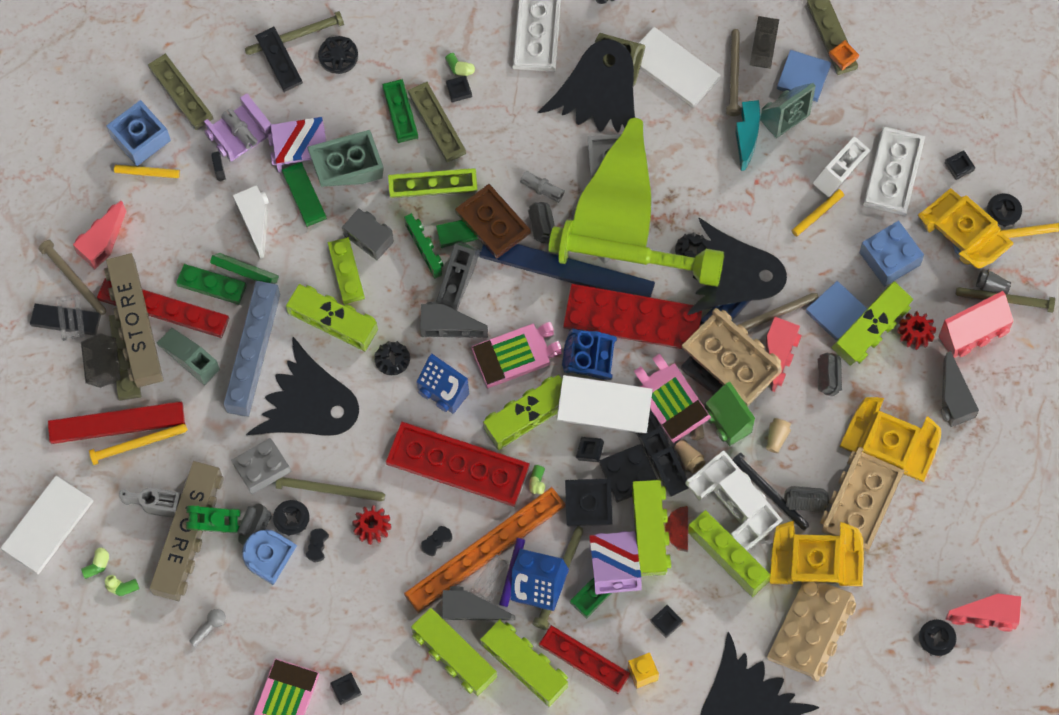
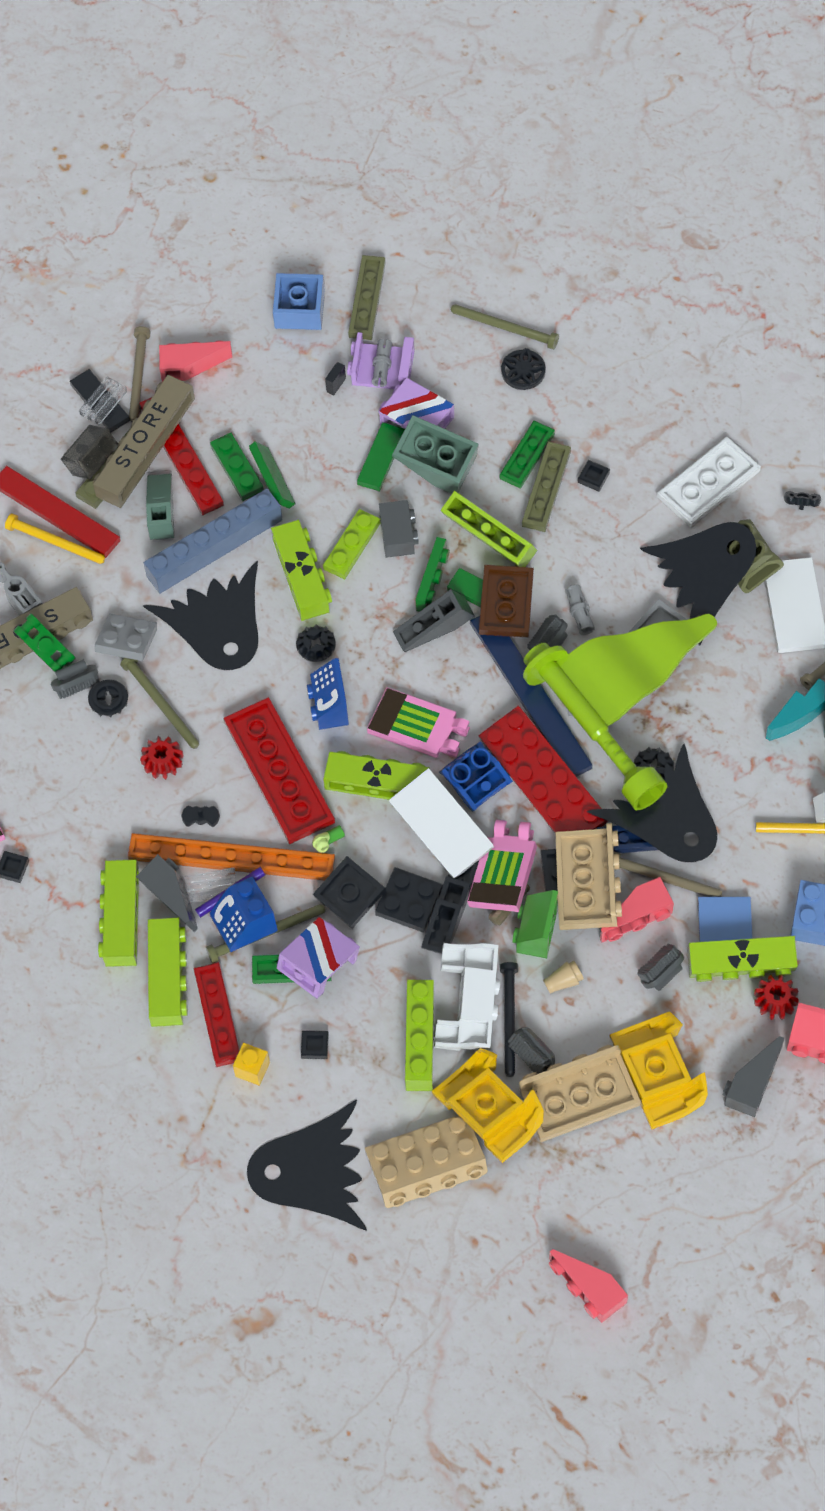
camera: 45 degrees right, 5 degrees down
(146, 171) = (278, 338): yellow bar -> none
(254, 213) = (322, 441): white slope -> none
(267, 554) = (60, 709): medium blue tile -> none
(279, 59) = (470, 334): black tile -> none
(316, 545) = (106, 737): black piece -> none
(443, 321) = (383, 647): dark grey slope -> none
(458, 67) = (611, 459): yellowish green arm -> none
(590, 449) = (396, 852): black tile -> none
(649, 527) = (375, 955): lime brick -> none
(678, 528) = (396, 979): clear red tile -> none
(690, 457) = (471, 929): tan cone -> none
(947, 634) = (529, 1254): black gear -> none

